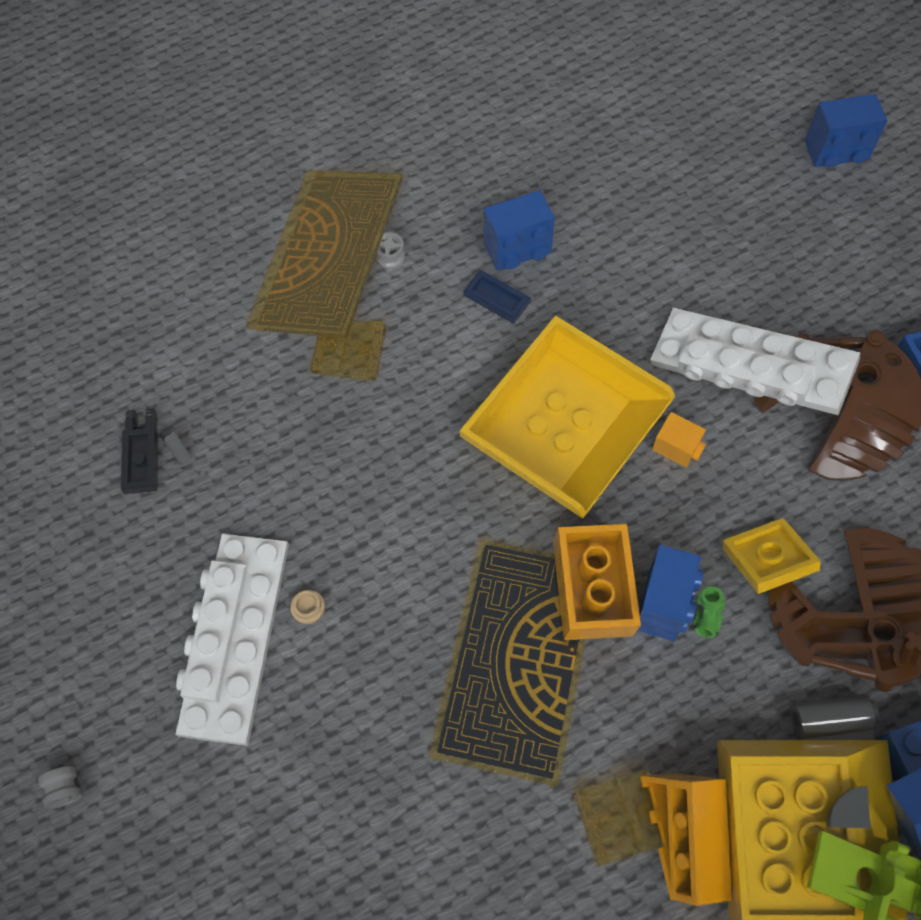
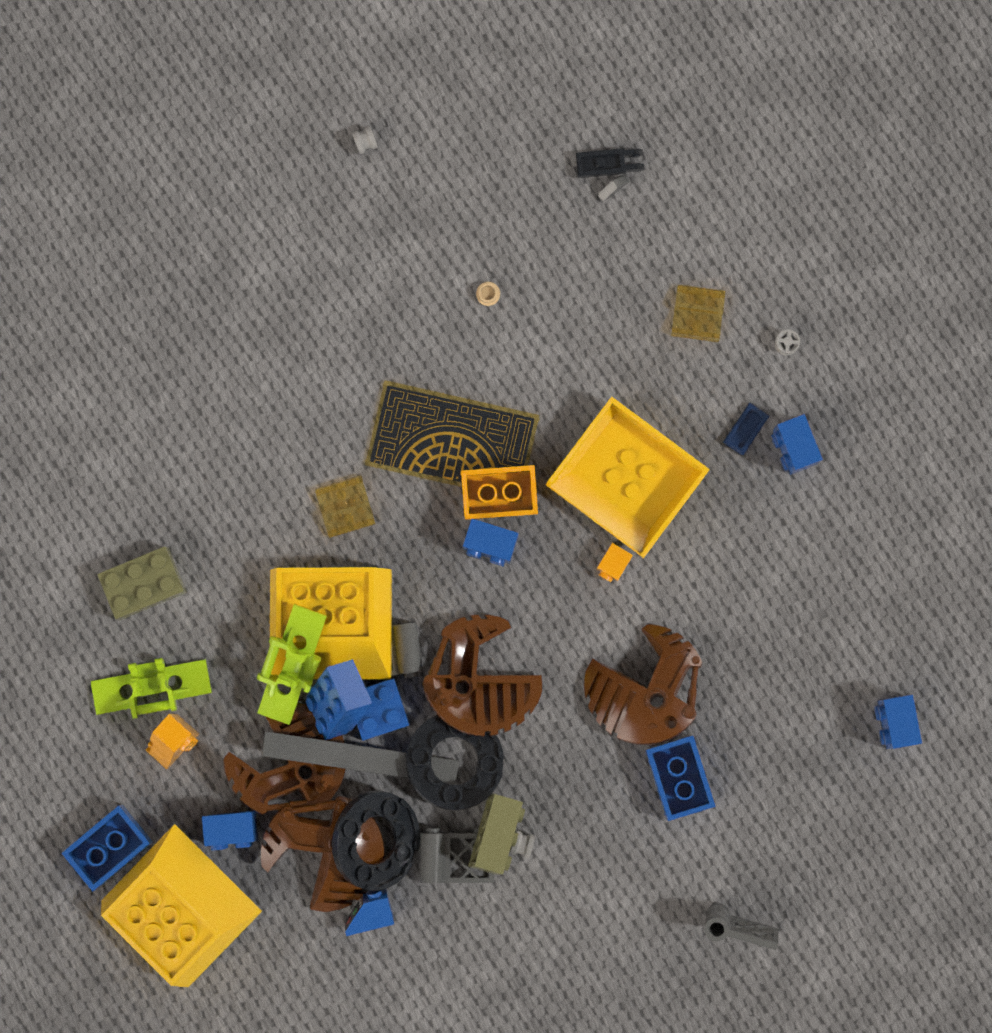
camera: 90 degrees right, 20 degrees up
(230, 639) = (467, 242): white plate -> none
(325, 253) = (786, 291): clear yellow piece -> none
(693, 834) = (331, 547): light orange wedge -> none
(709, 618) = (478, 571): bright green bar -> none
(756, 361) = (675, 620): white plate -> none
(771, 555) = (521, 619): yellow plate -> none
(850, 810) = (339, 637): dark grey tile -> none

